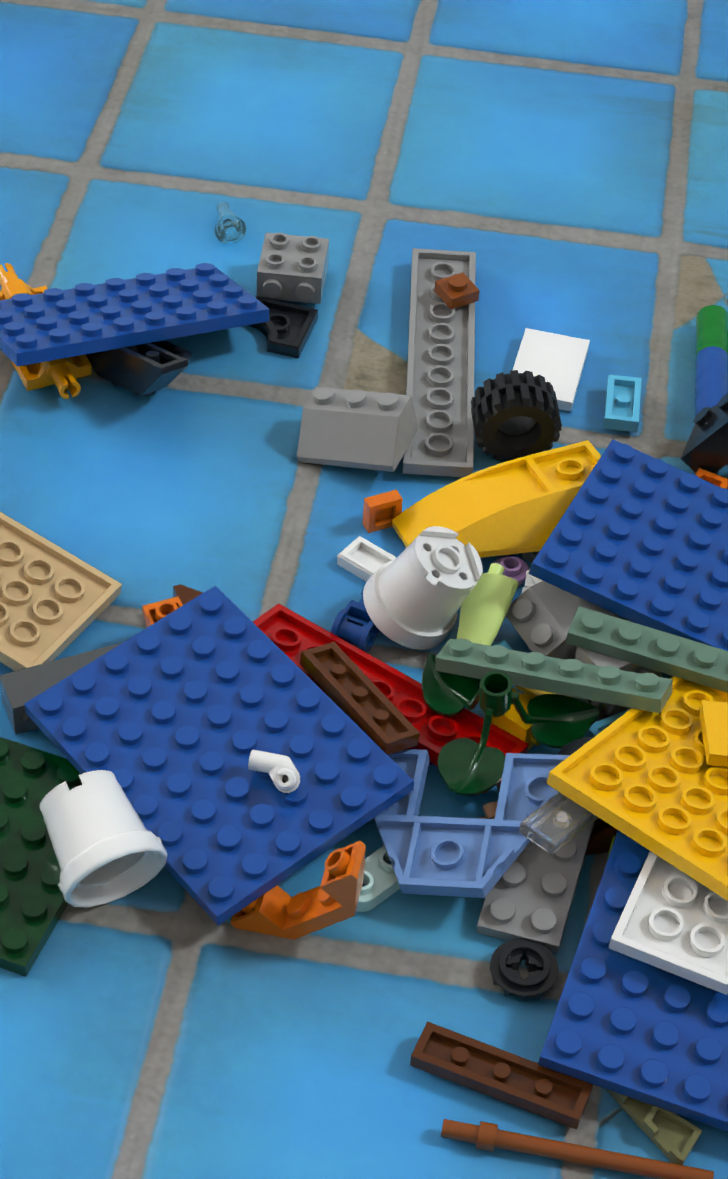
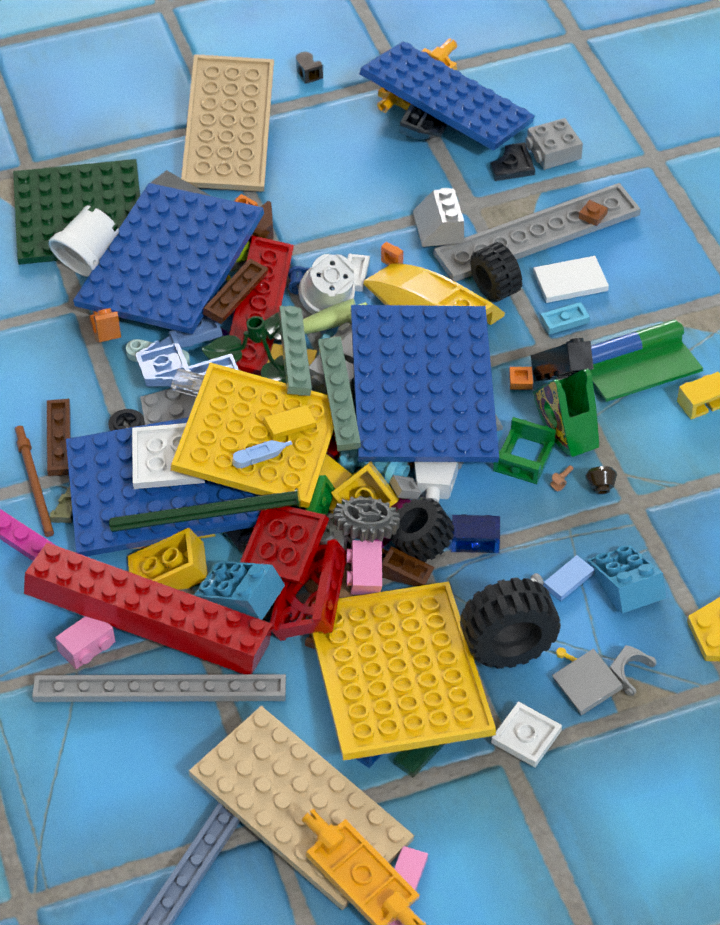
camera: 65 degrees right, 5 degrees up
(229, 226) = (574, 106): clear light blue cone -> none
(279, 767) = (160, 277): white arm -> none

